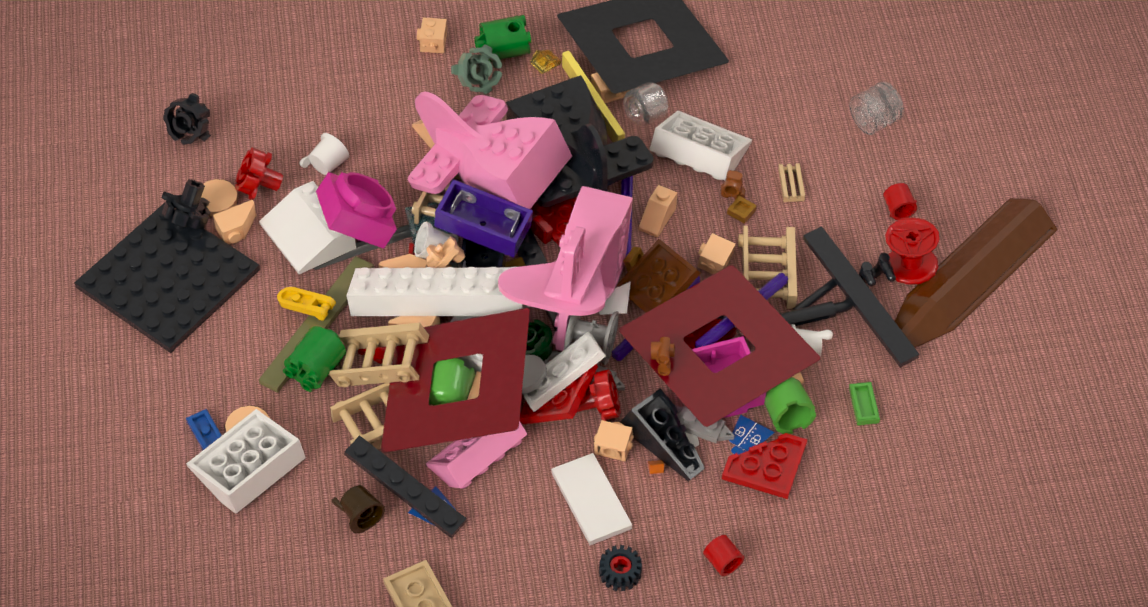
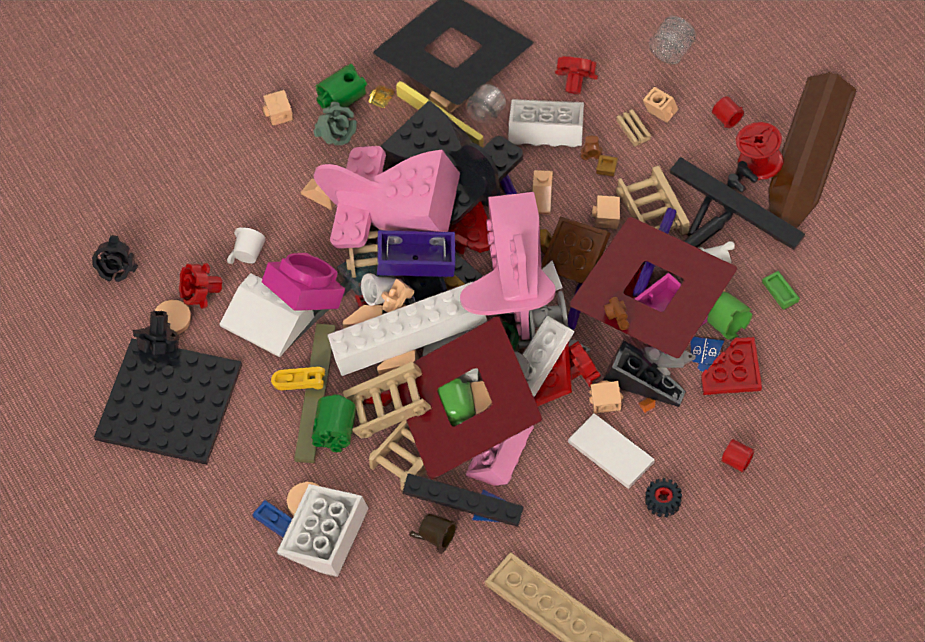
camera: 20 degrees left, 5 degrees up
(235, 222) = (200, 334): light nougat slope -> none
(756, 102) = (575, 70): none -> red piece
(830, 168) = (660, 104): none -> light nougat head

